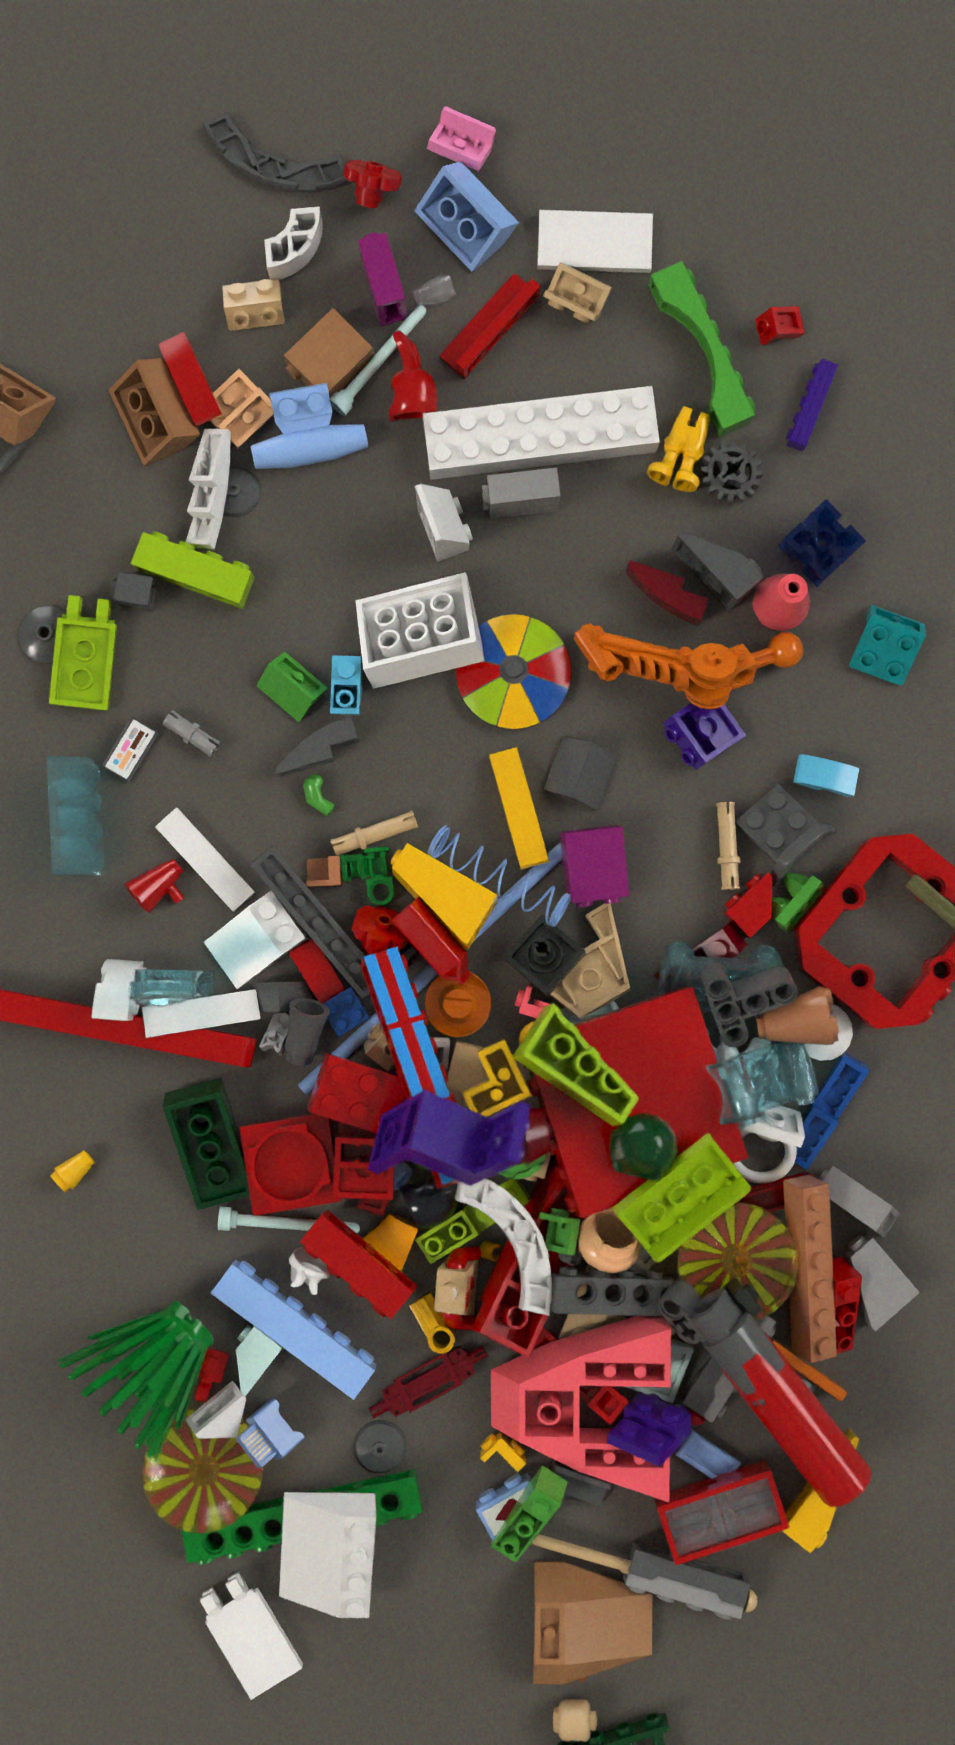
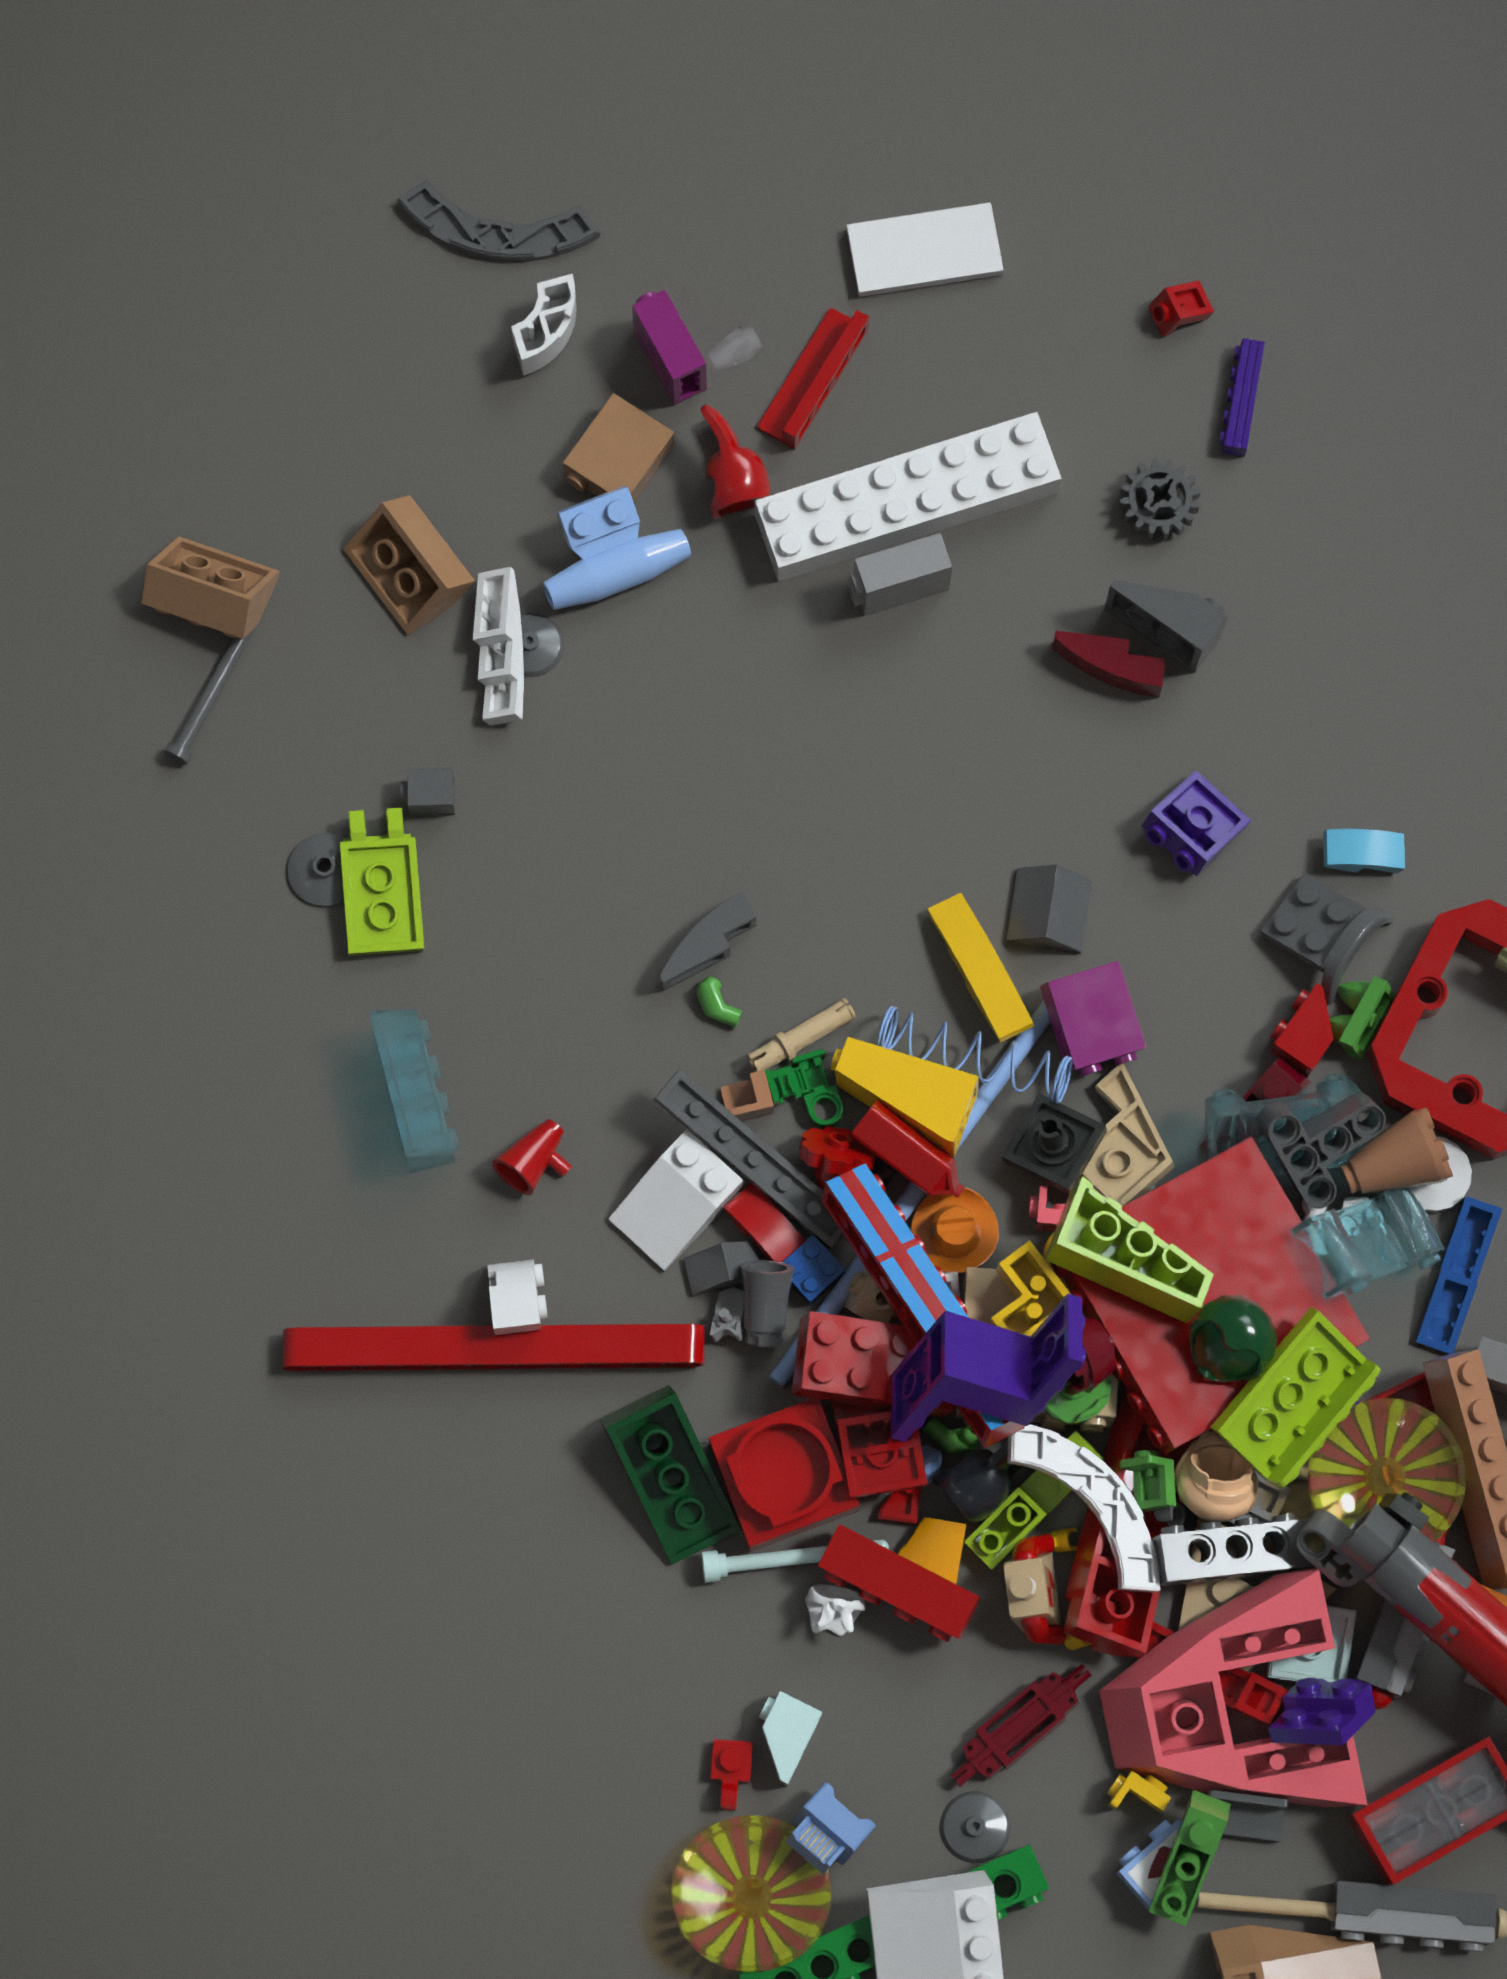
camera: 10 degrees left, 10 degrees down
(70, 1172) = (497, 1546): yellow cone -> none
(130, 749) = (464, 992): slope -> none
(167, 1374) = (683, 1740): green plant -> none
(170, 987) = (589, 1269): clear light blue piece -> none
(190, 379) = (449, 514): red slope -> none
(191, 733) = (539, 956): light grey pin -> none
(192, 569) = (500, 750): lime brick -> none
(201, 1013) = (626, 1305): white sticker -> none
(205, 859) = (589, 1113): white tile -> none
(219, 1415) = (759, 1817): white slope -> none
(242, 408) = (515, 538): light nougat slope -> none
(253, 304) = (508, 408): tan bracket -> none
(291, 686) = (654, 873): bright green panel -> none
(294, 1328) = (835, 1691): light blue brick -> none
(343, 400) = (648, 501): light aqua piece -> none
(346, 685) = (727, 854): medium azure slope -> none
(371, 181) = (628, 230): red plant -> none
(418, 631) = (805, 770): white slope -> none
(431, 1322) = (1009, 1642): yellow piece -> none
(442, 521) = (806, 629): white slope -> none
(462, 139) = (731, 157): bright pink bracket -> none
(465, 215) = (755, 249): light blue slope -> none
(521, 676) = (936, 800): dish -> none
(577, 292) = (917, 316): tan bracket -> none
(678, 298) = (1045, 298): bright green arch -> none
(683, 440) = (1088, 471): yellow piece -> none
(702, 673) = (1178, 751): orange piece -> none
(706, 1456) = (1403, 1750): light blue tile -> none
(728, 846) = (1258, 963): tan pin -> none
(775, 1125) = (1398, 1301): white tile -> none
(781, 601) = (1259, 645): coral cone -> none
(821, 525) = (1288, 542): clear blue brick -> none
(888, 645) = (1405, 675): teal bracket -> none

